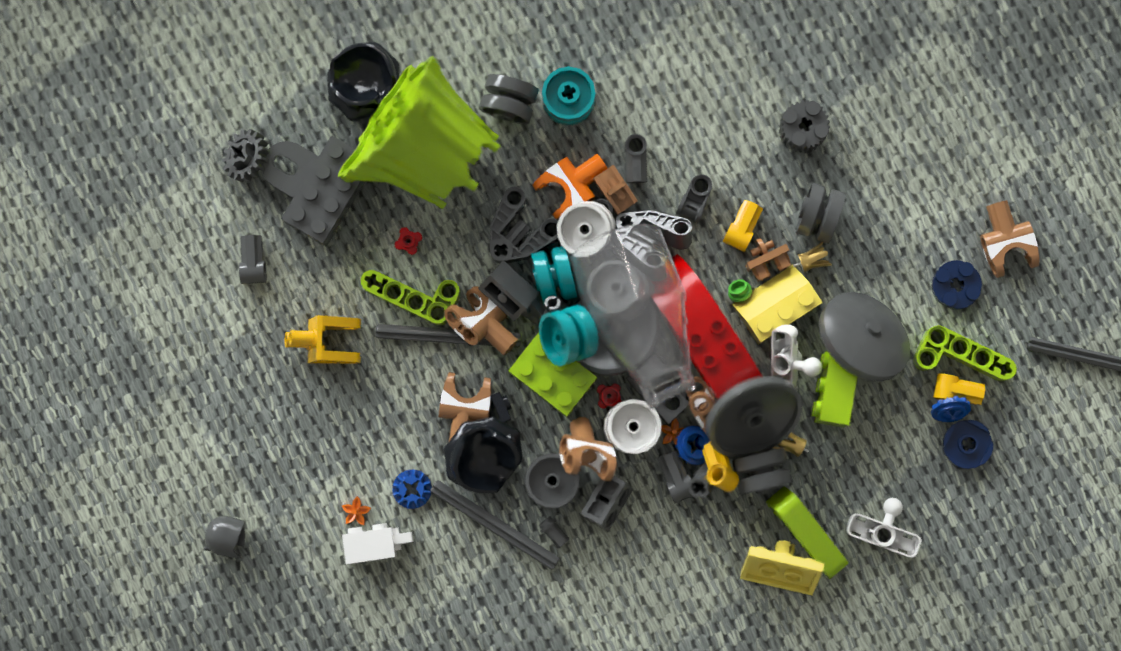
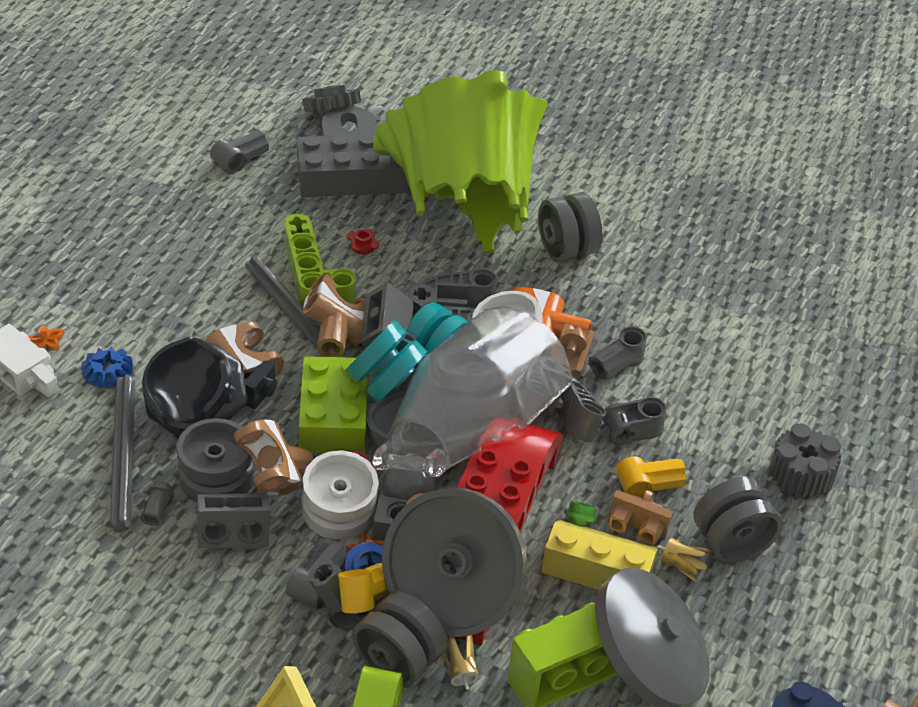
camera: 45 degrees right, 40 degrees down
(313, 340) = (209, 211): yellow piece -> none
(563, 82) = (621, 271): teal wheel -> none
(787, 358) = (551, 586): white piece -> none

